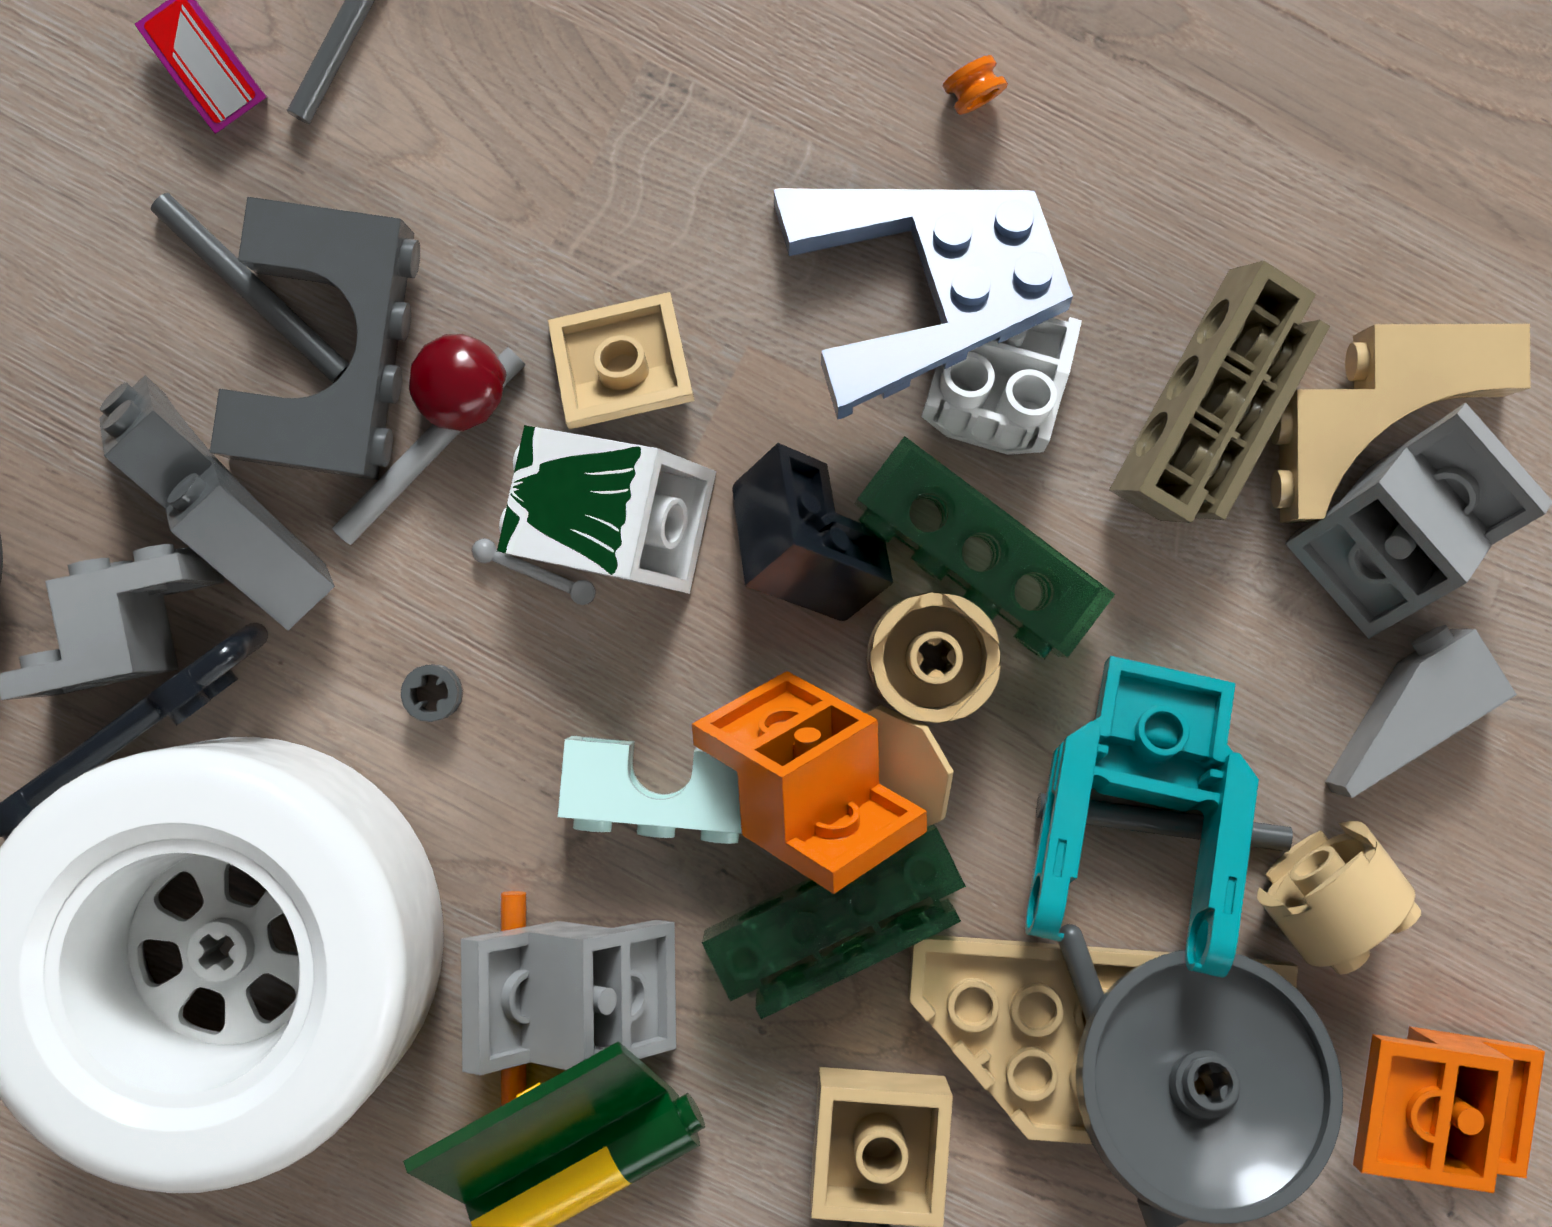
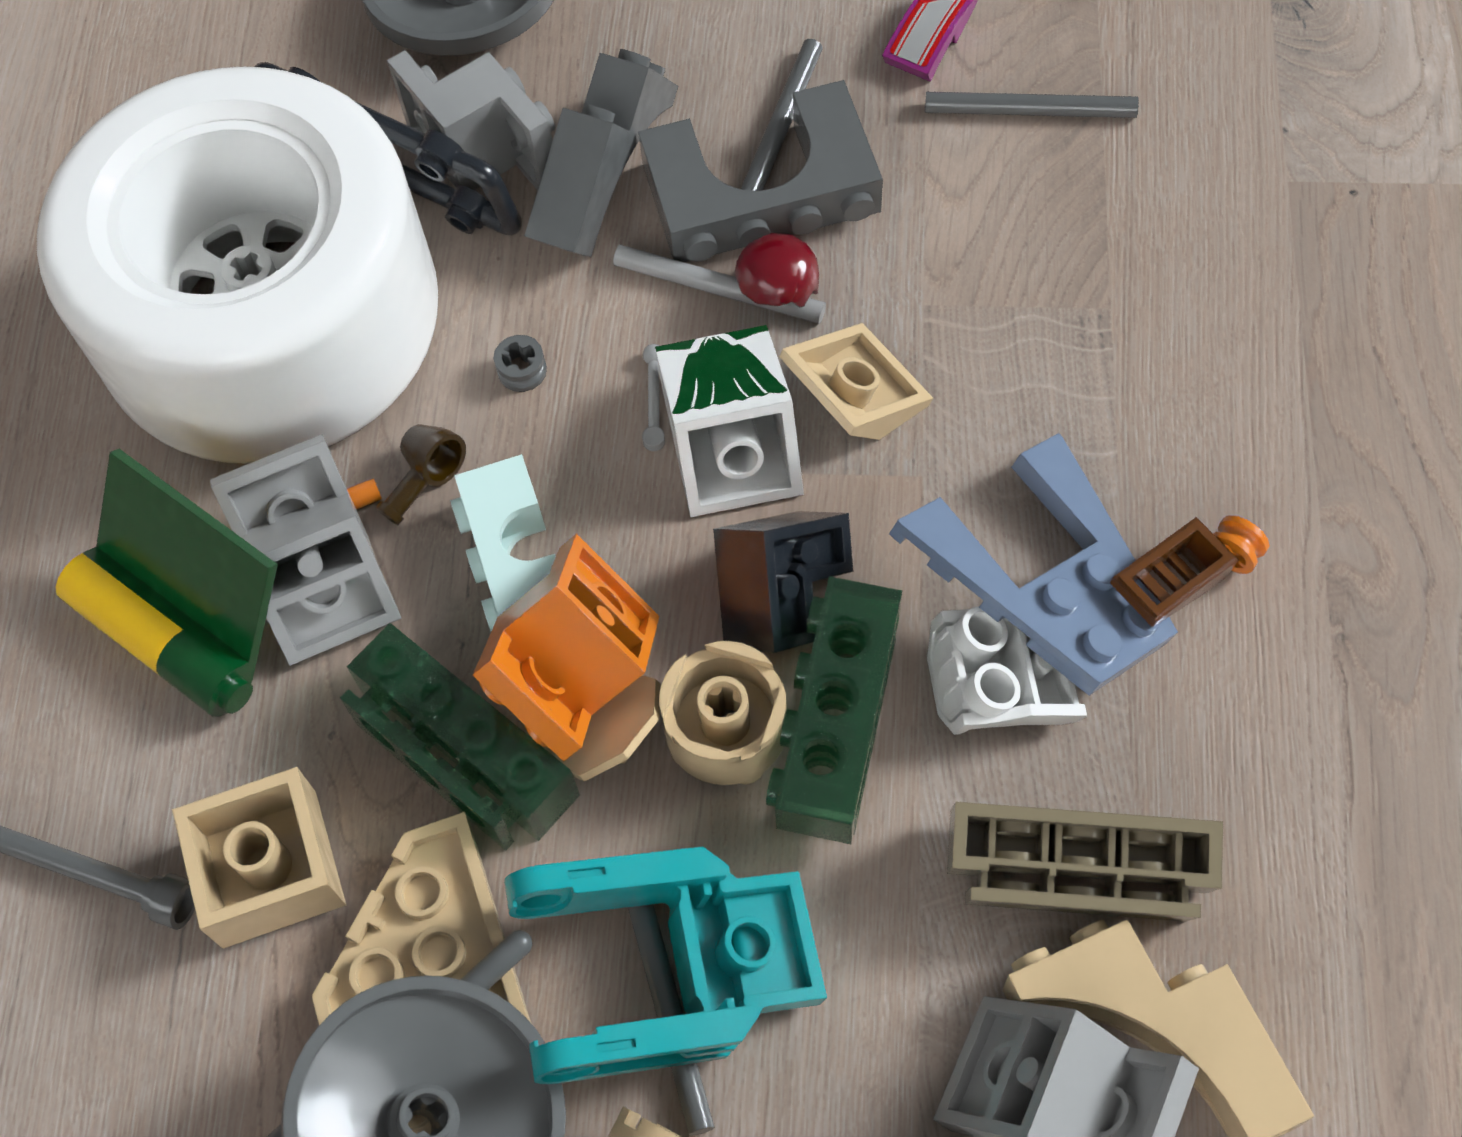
camera: 70 degrees right, 25 degrees down
(507, 827) = (434, 459): none -> dark brown bar
(973, 120) = (1199, 548): none -> reddish brown slope

